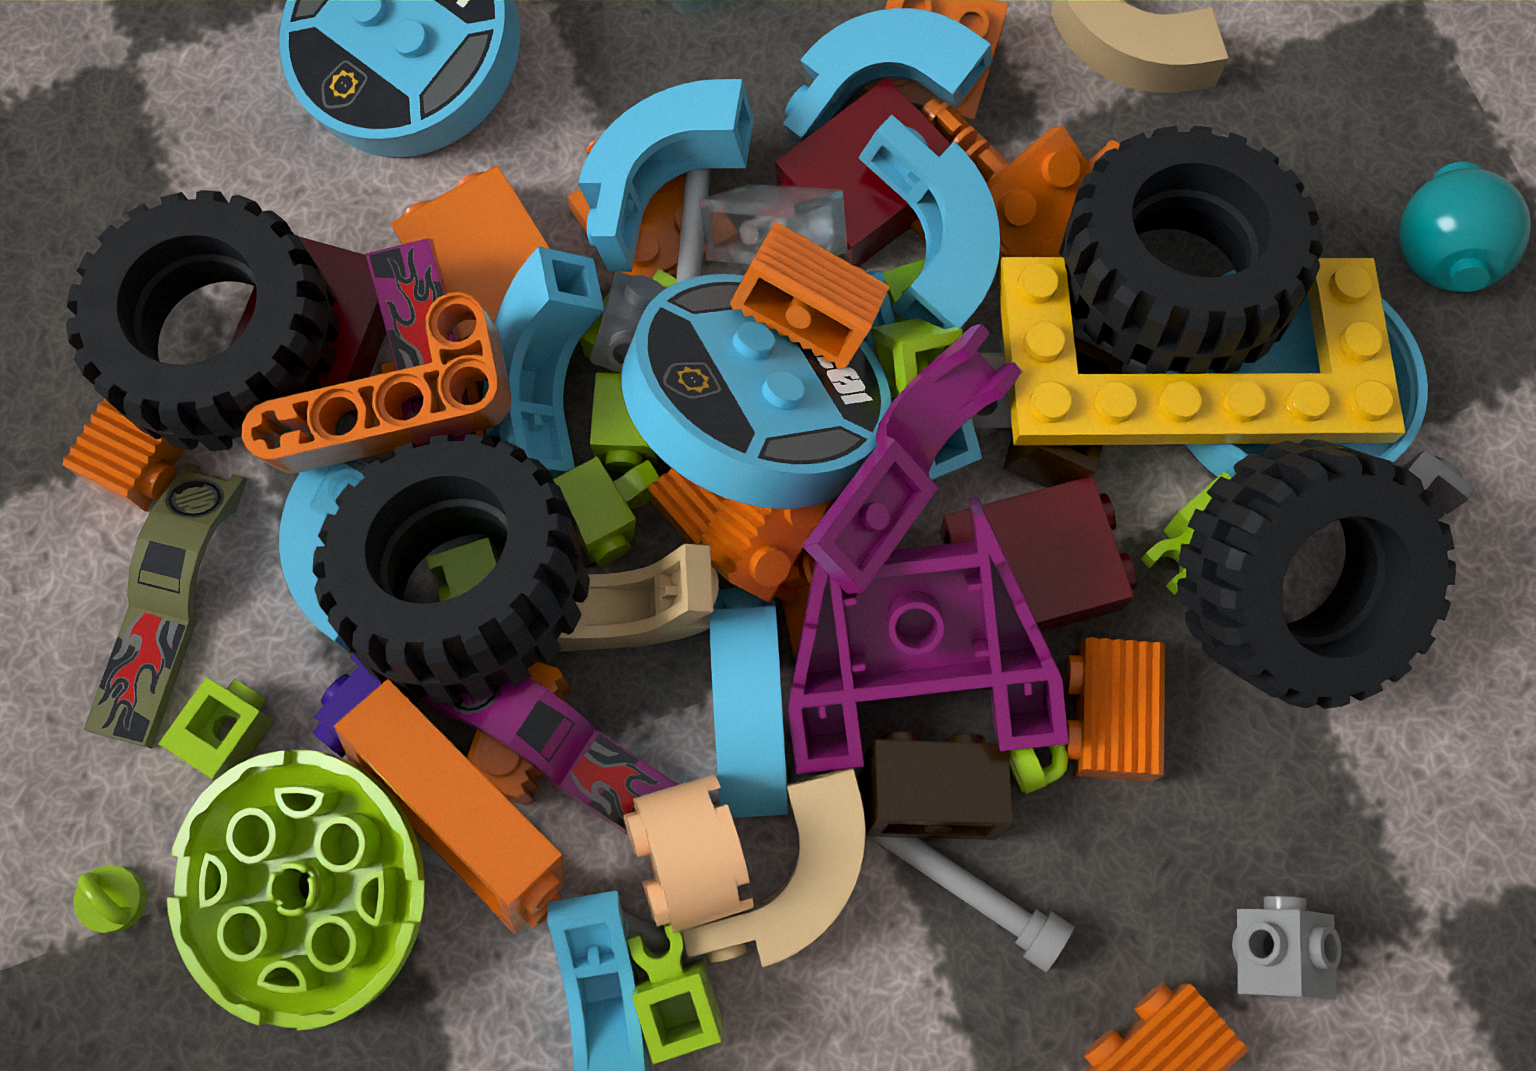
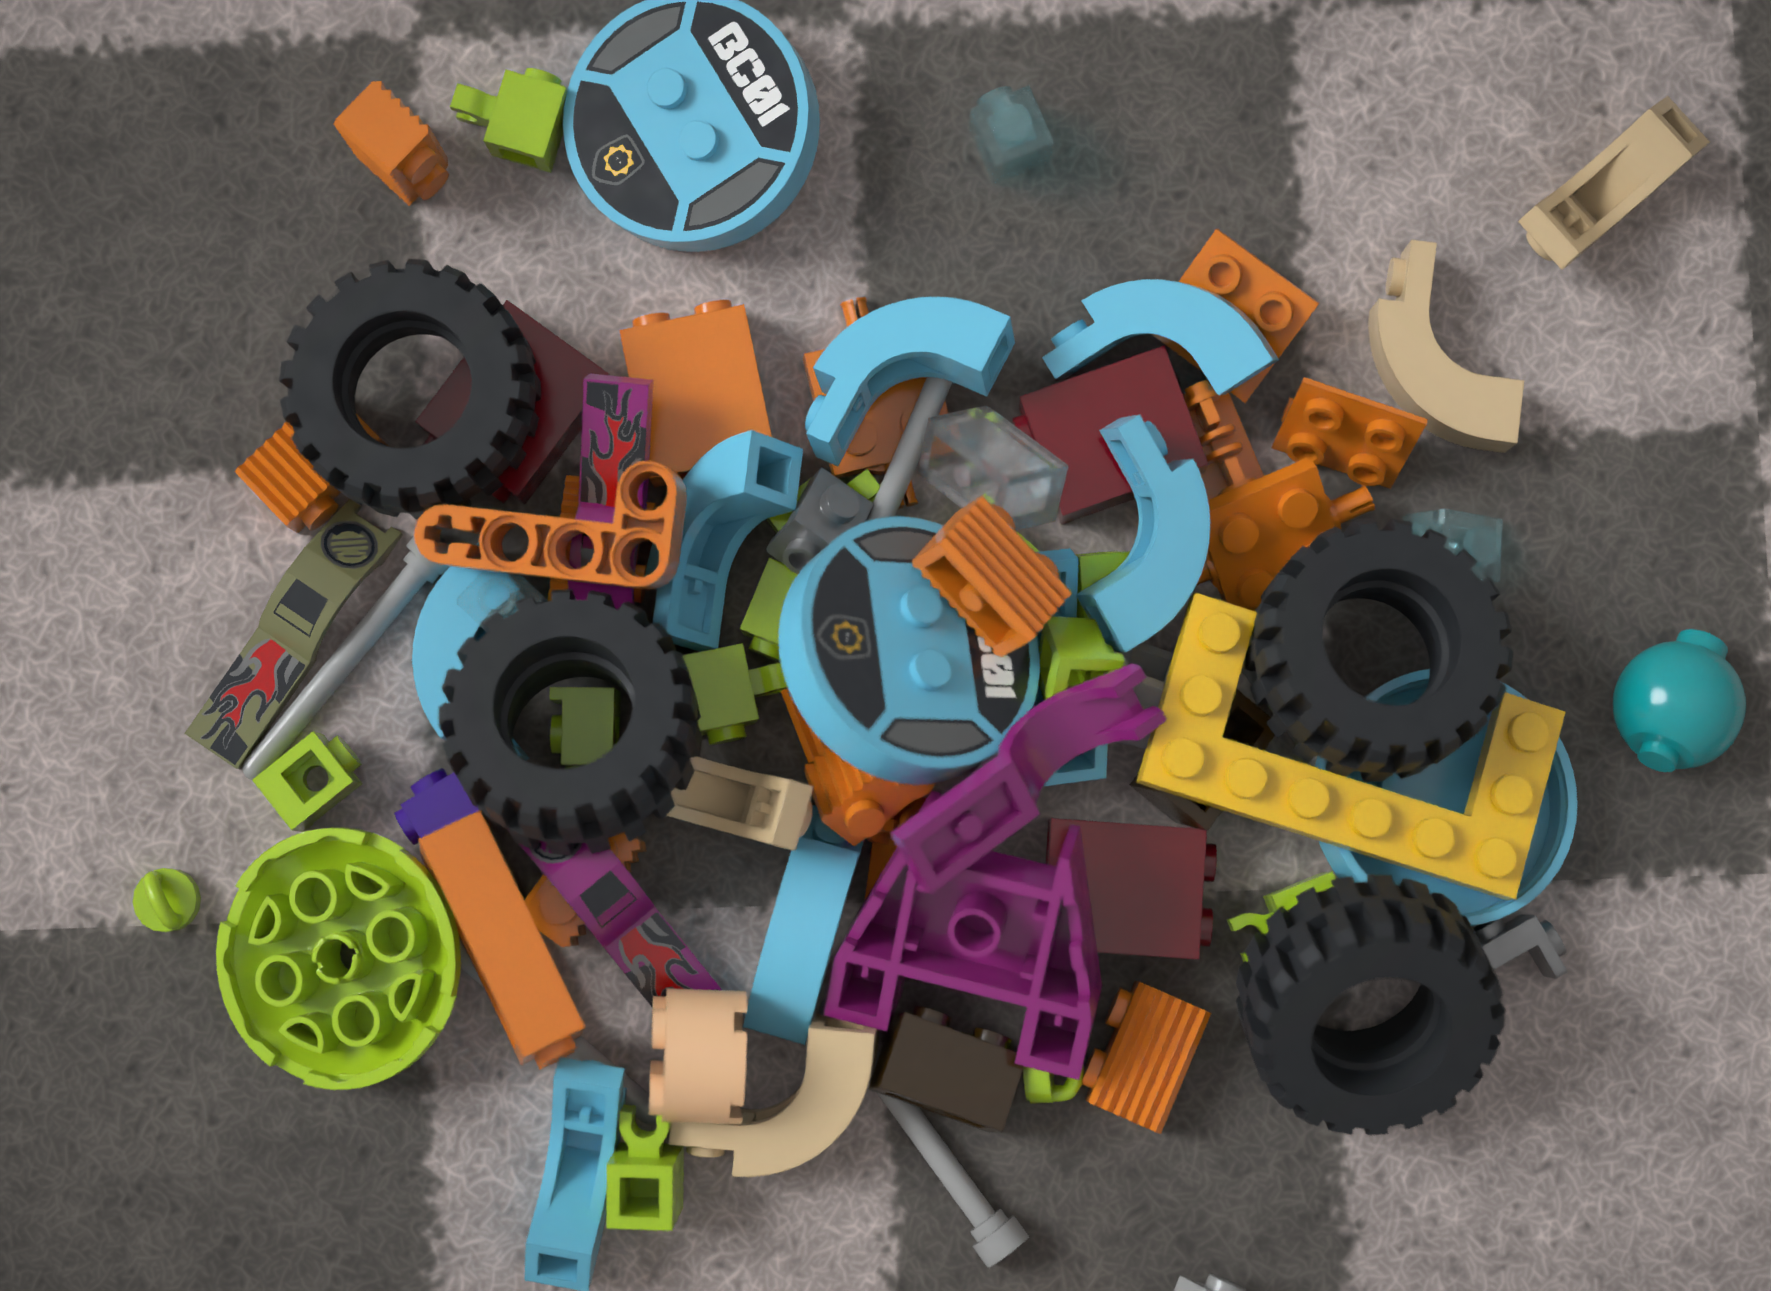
camera: 20 degrees right, 10 degrees up
(130, 131) = (394, 143): none -> orange brick
(245, 87) = (523, 118): none -> lime brick
(270, 497) = (343, 660): none -> light grey piece
(1080, 88) = (1348, 433): none -> orange hinge

